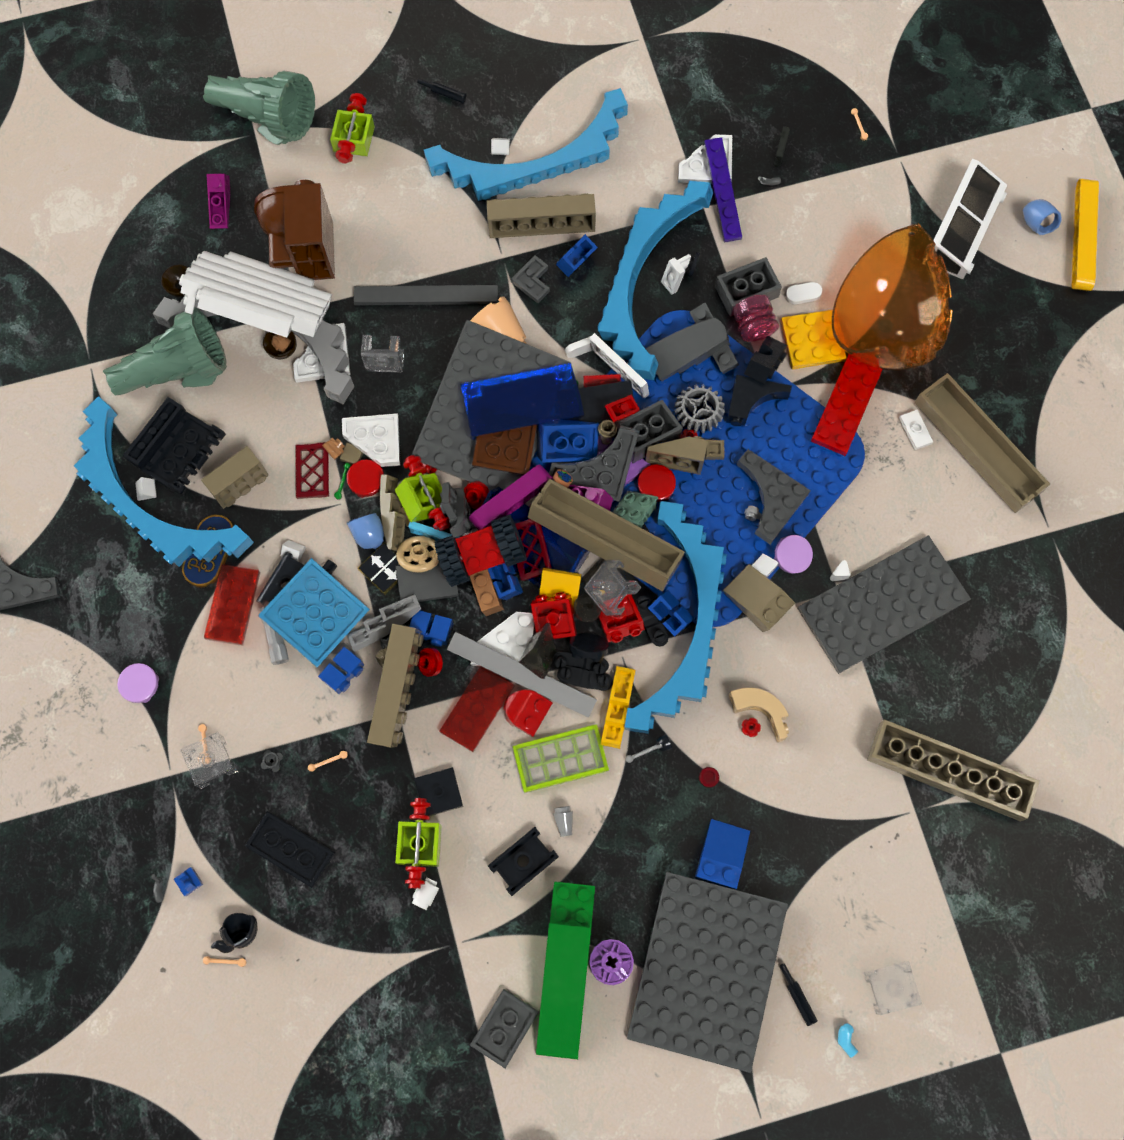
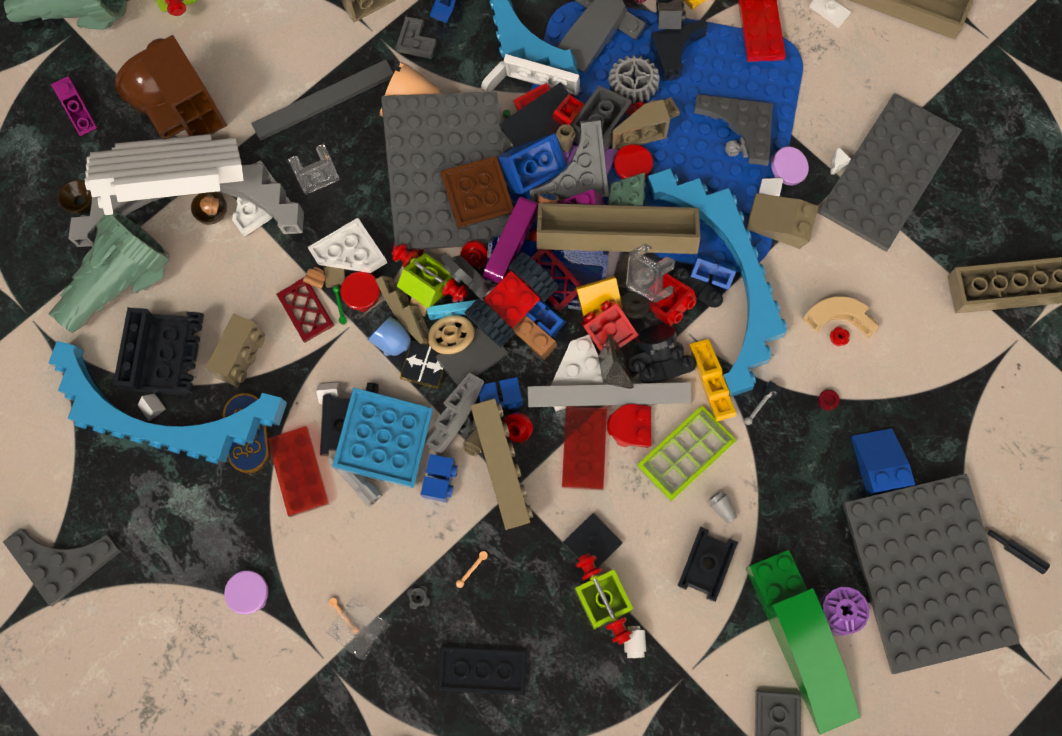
camera: 25 degrees left, 0 degrees up
(521, 400) = (472, 145): clear blue slope -> none

